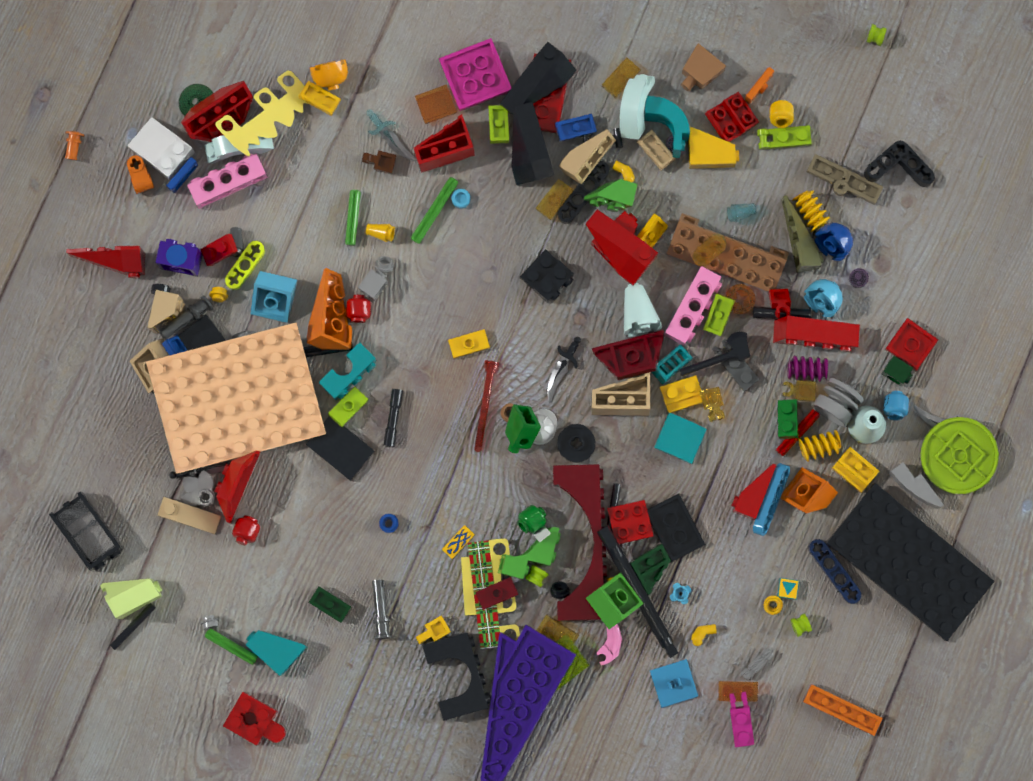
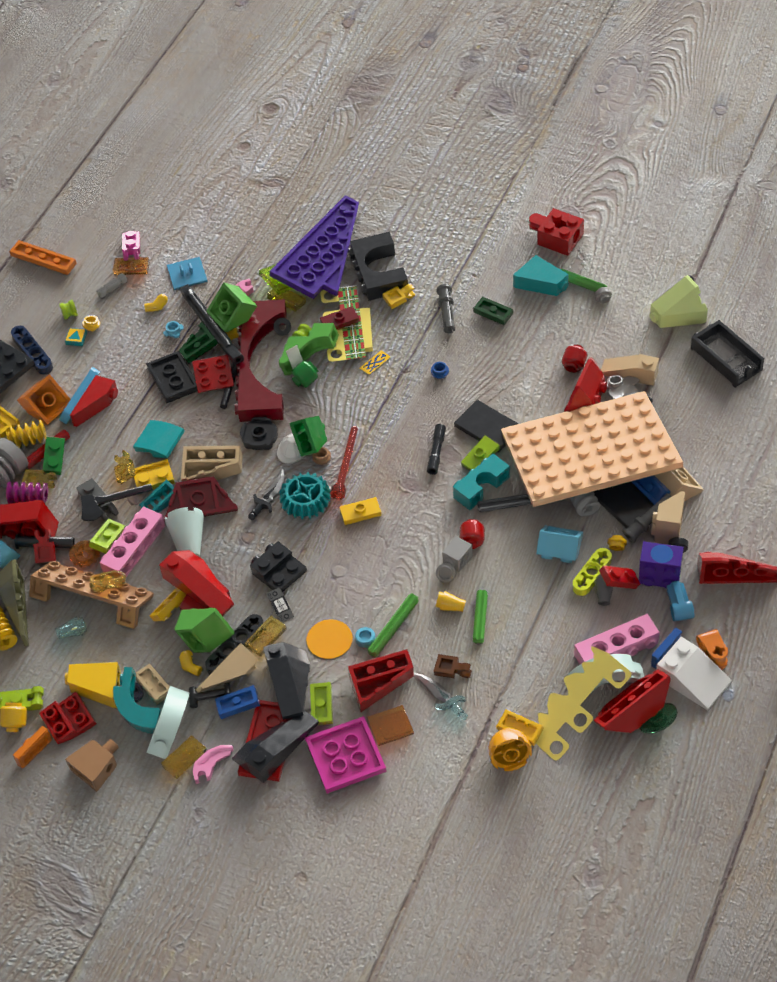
camera: 175 degrees left, 30 degrees down
(165, 220) = (680, 605): none -> dark azure piece
(328, 321) = (501, 519): orange wedge -> none
(494, 200) = (329, 639): none -> light orange sticker
(532, 355) = (305, 495): none -> teal gear
(543, 235) = (280, 605): none -> sticker
(598, 74) = (207, 762): none -> bright pink piece

